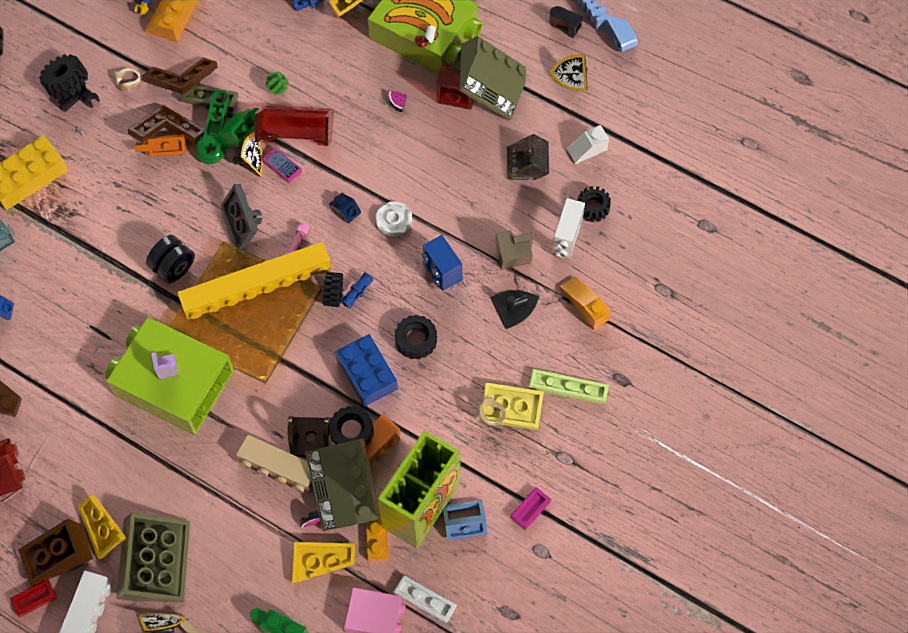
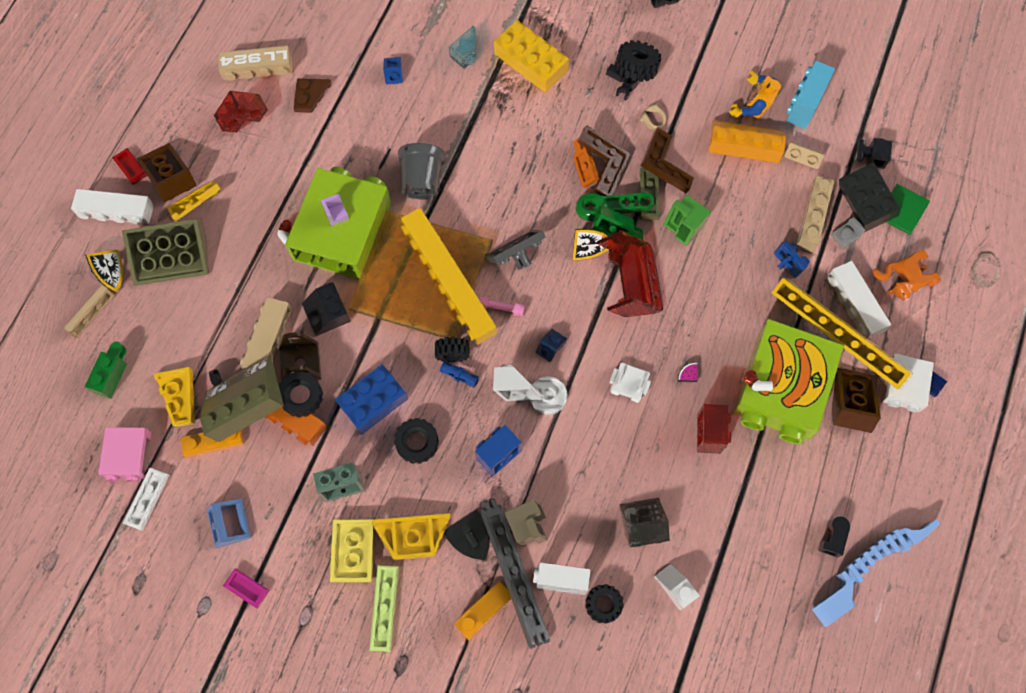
camera: 80 degrees right, 5 degrees up
(132, 290) = (420, 169): none -> dark grey piece
(162, 439) = (284, 230): none -> arm
(170, 259) = (459, 195): black wheel -> none
(249, 68) = (686, 219): none -> bright green plate
(260, 404) = (325, 309): none -> black slope
(277, 83) = (678, 250): bright green gear -> none
(282, 165) = (588, 276): tile -> none
(382, 236) = (513, 385): none -> white slope
(395, 148) = (630, 382): none -> white piece
(420, 489) = (221, 466): lime brick -> none
(447, 402) = (332, 481): none -> sand green window
(491, 76) = (727, 461): olive slope -> none
(492, 403) = (335, 519): tan piece -> none
(507, 351) = (412, 535): none -> yellow wing
(554, 271) = (514, 574): none -> dark grey hinge
(571, 72) = (765, 554): shield -> none

